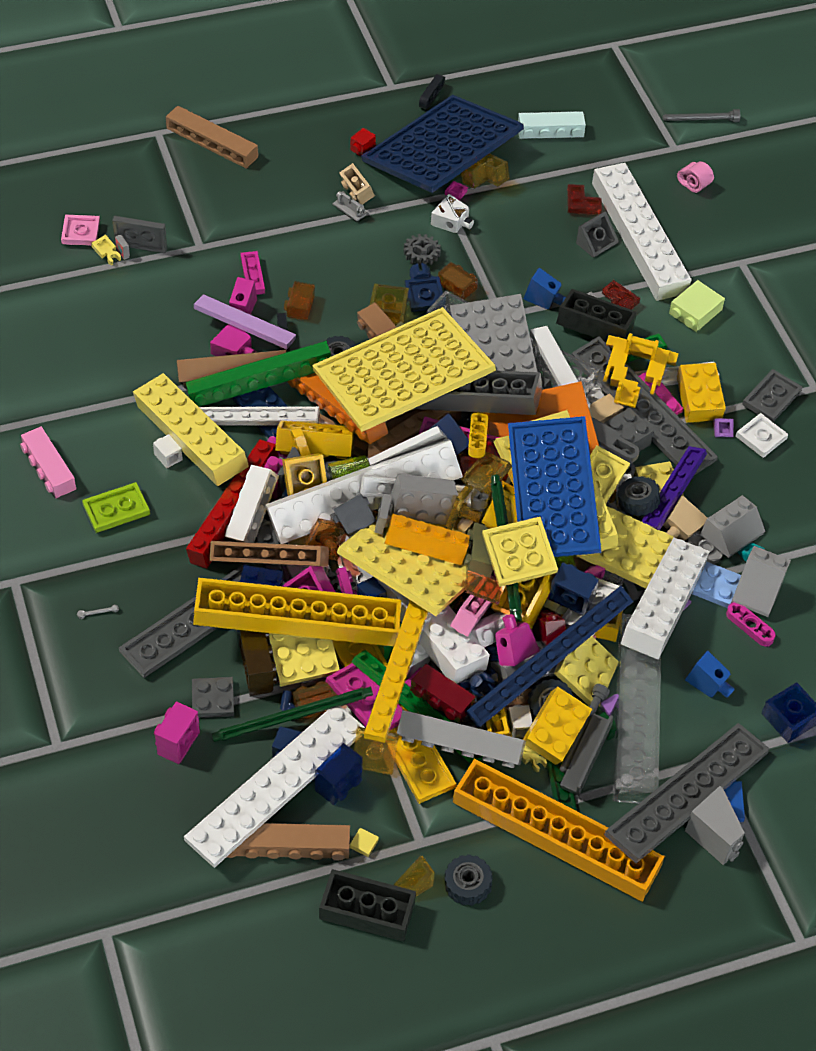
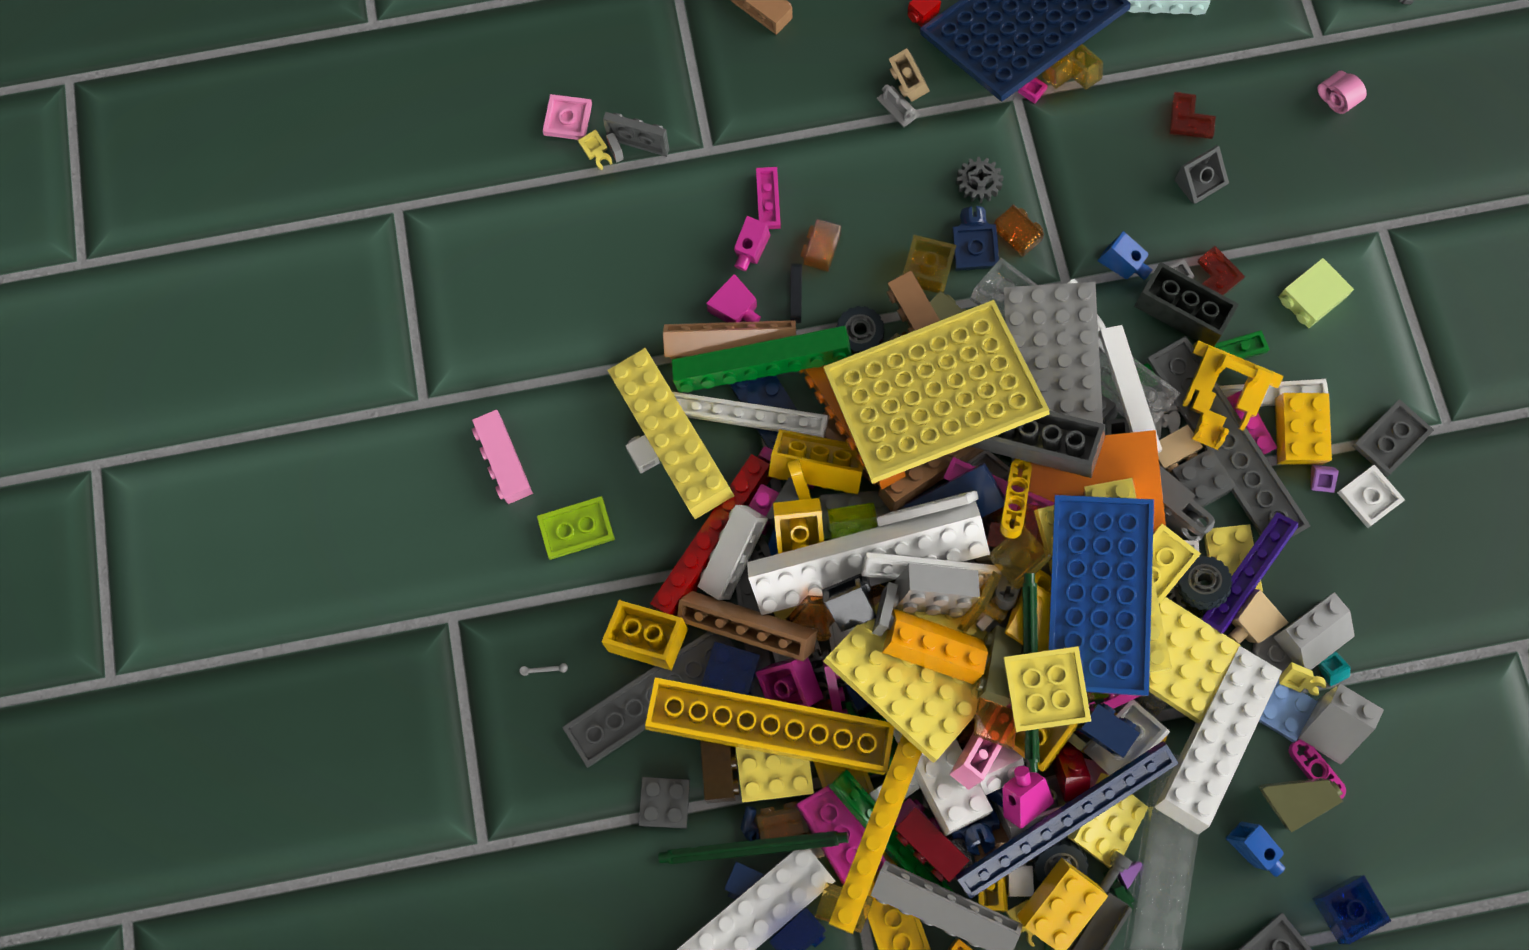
camera: 15 degrees right, 20 degrees up
(177, 732) = (616, 857): dark pink brick -> none
(179, 570) = (645, 635): none -> yellow brick
(244, 321) = (750, 278): lavender tile -> none
(451, 215) = (1022, 129): white torso -> none
(641, 231) = (1260, 172): white brick -> none
(724, 557) = (1299, 677): none -> light yellow plate
(737, 636) = (1301, 800): none -> olive slope

